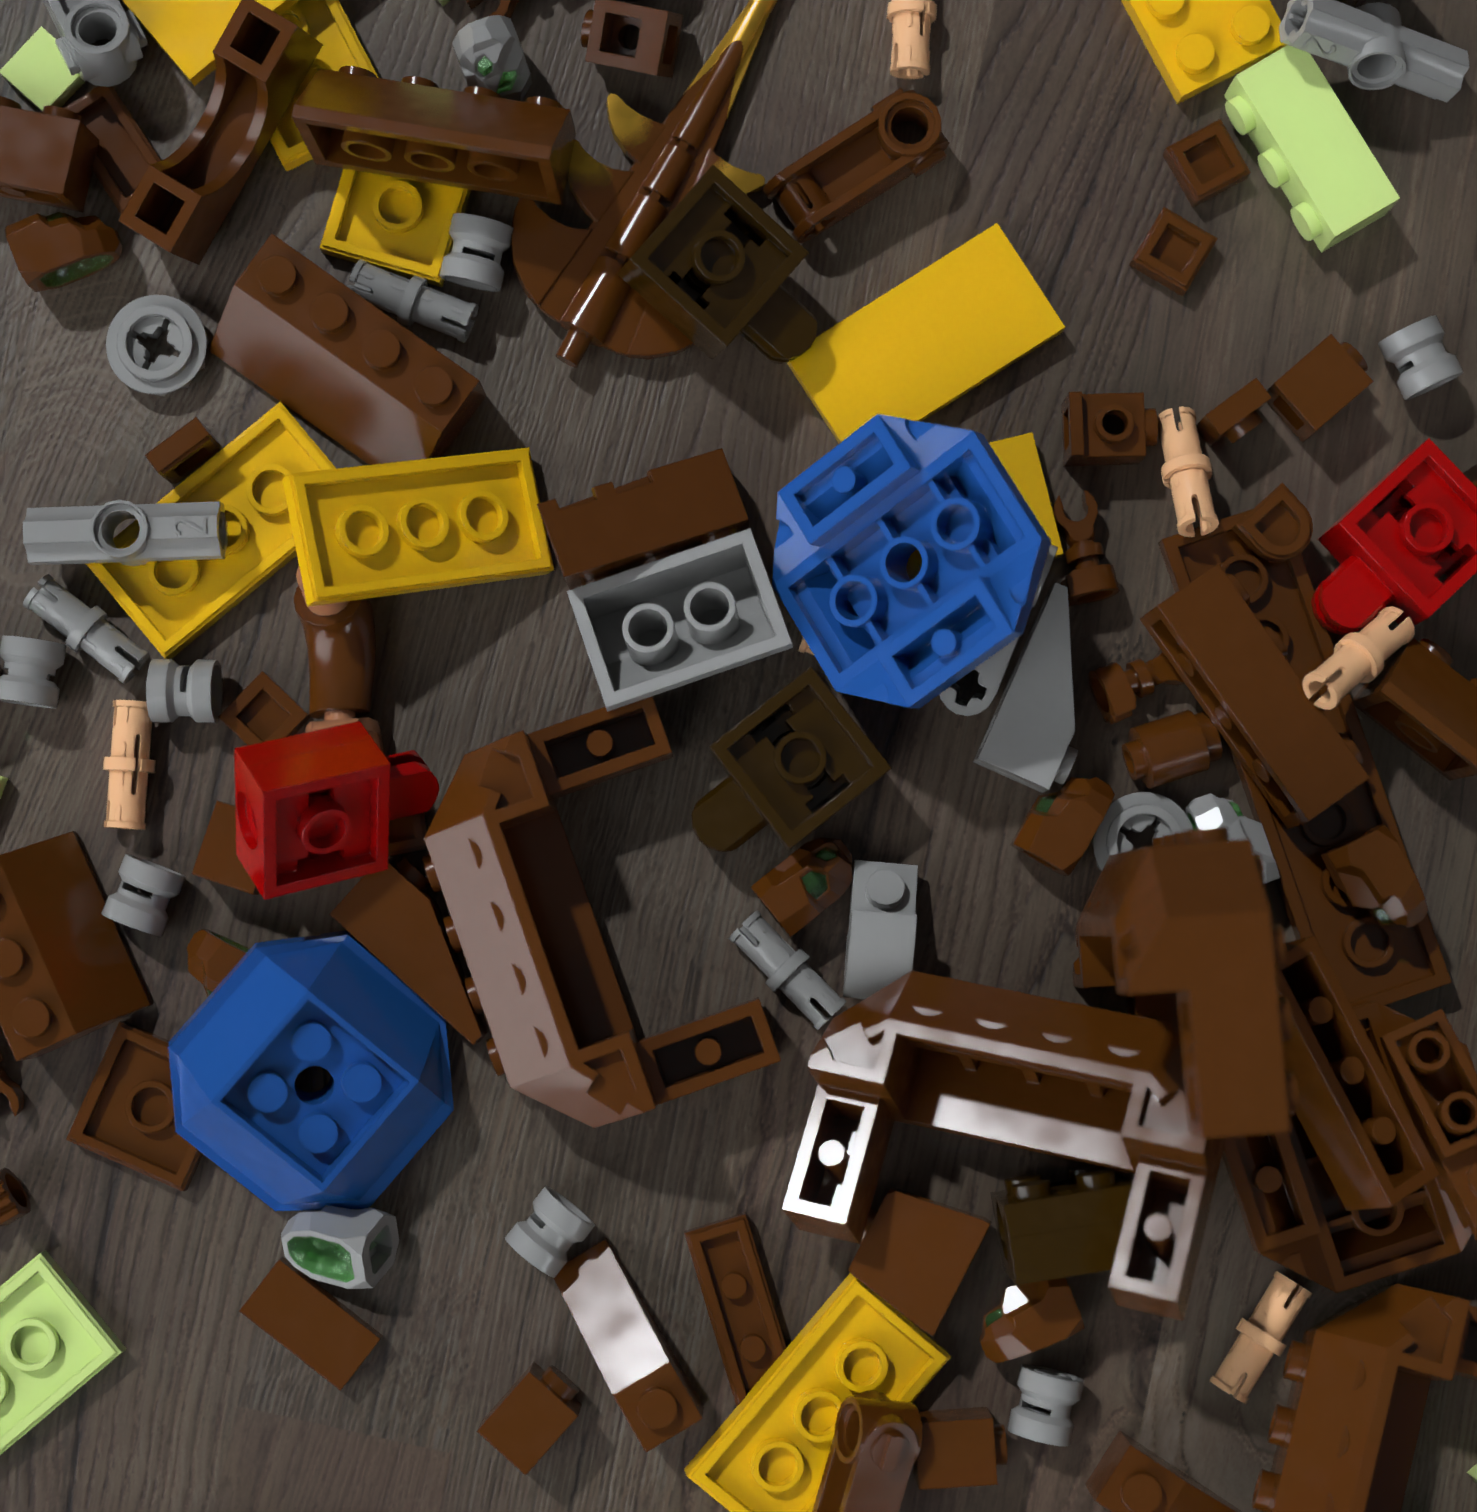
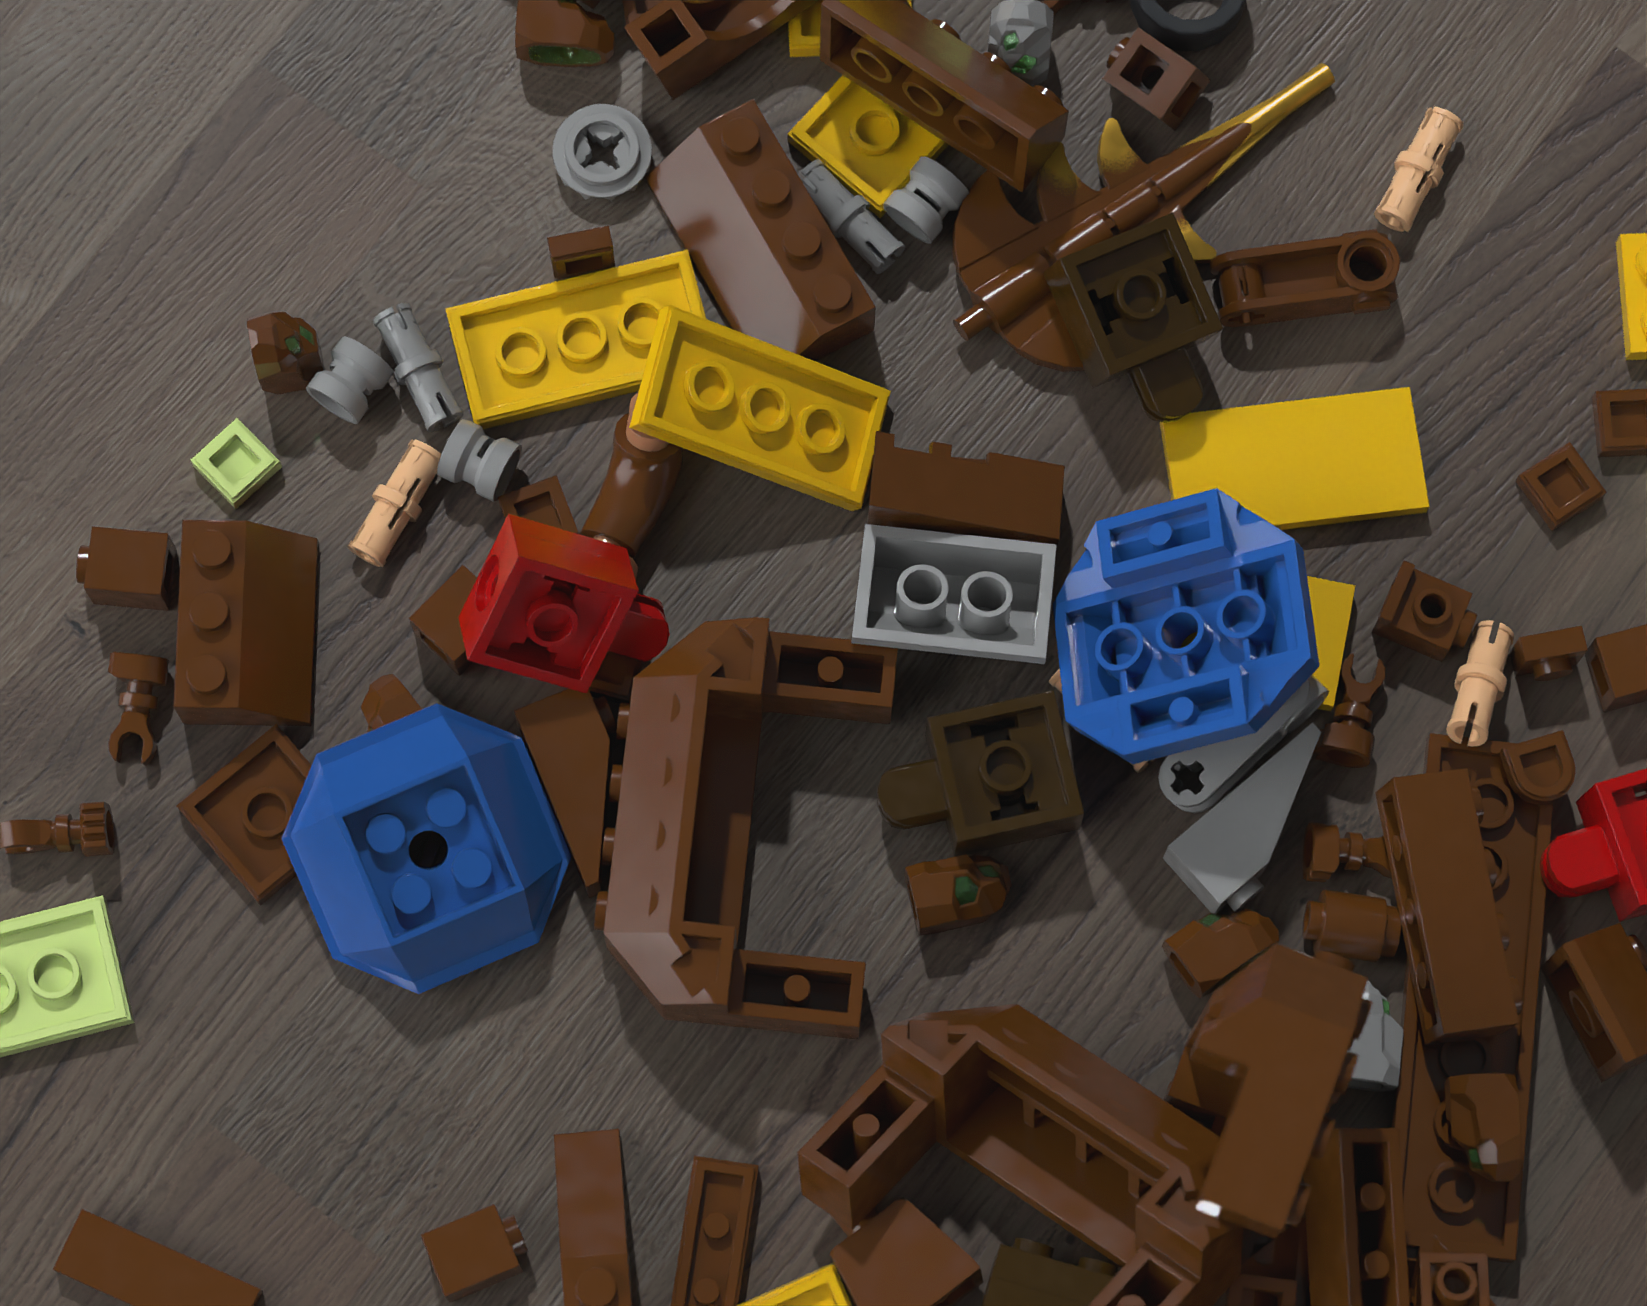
camera: 25 degrees right, 10 degrees down
(87, 533) = (462, 281): light grey piece -> none
(136, 908) = (343, 631): light grey wheel -> none
(311, 1323) = (313, 1076): reddish brown tile -> none
(342, 1245) = (378, 1015): light grey rock -> none
(549, 1232) = (572, 1093): light grey wheel -> none
(787, 970) = (901, 957): light grey pin -> none
(880, 926) = (1007, 957): light grey brick -> none
(1358, 658) = (1558, 912): light nougat pin -> none

